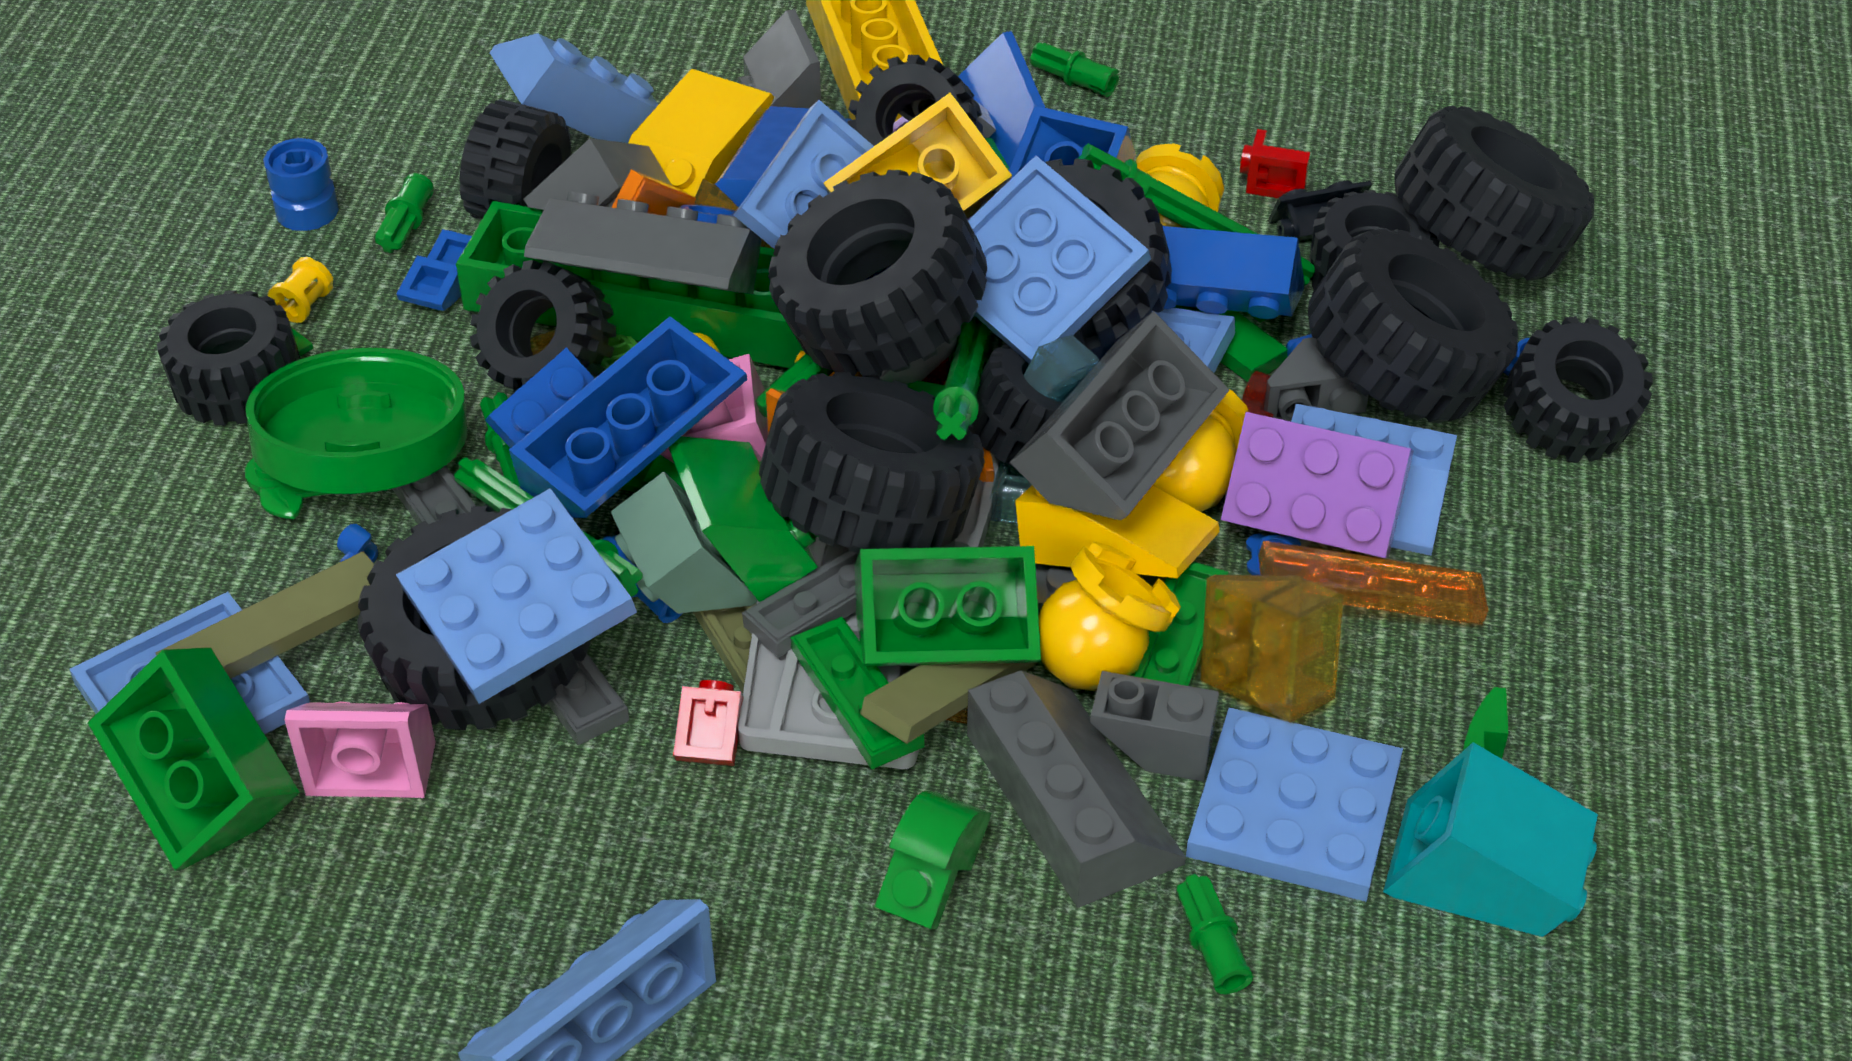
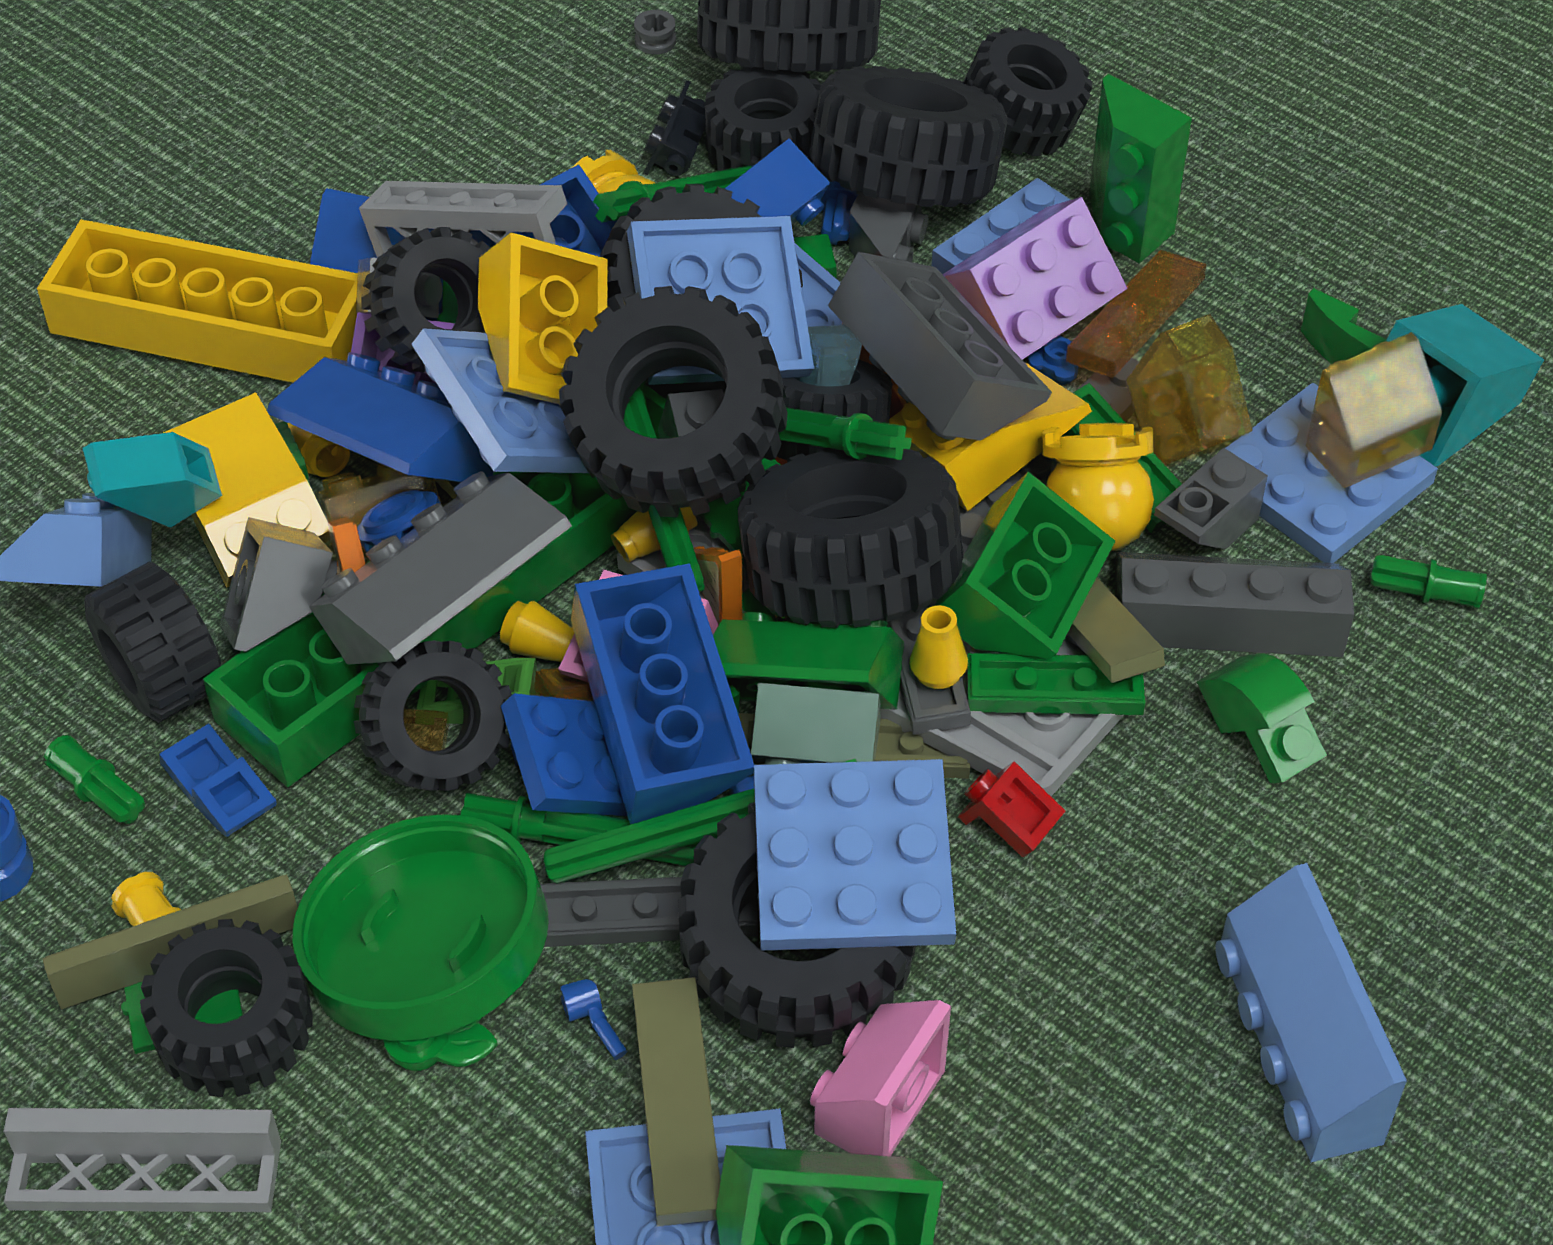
camera: 60 degrees left, 5 degrees up
(107, 374) = (138, 1138): none -> light grey fence
(311, 325) = (126, 955): none -> olive tile
(629, 72) = (153, 475): none -> teal slope
(784, 64) = (186, 375): dark grey slope -> none
(806, 582) = (938, 651): none -> yellow cone
(1015, 99) = (461, 206): none -> light grey fence
(1075, 68) = (365, 182): green axle -> none
(1273, 169) = (606, 129): red bracket -> none
(1349, 778) = (1374, 411): none -> clear yellow slope
(1513, 489) = (1136, 169): none -> green slope

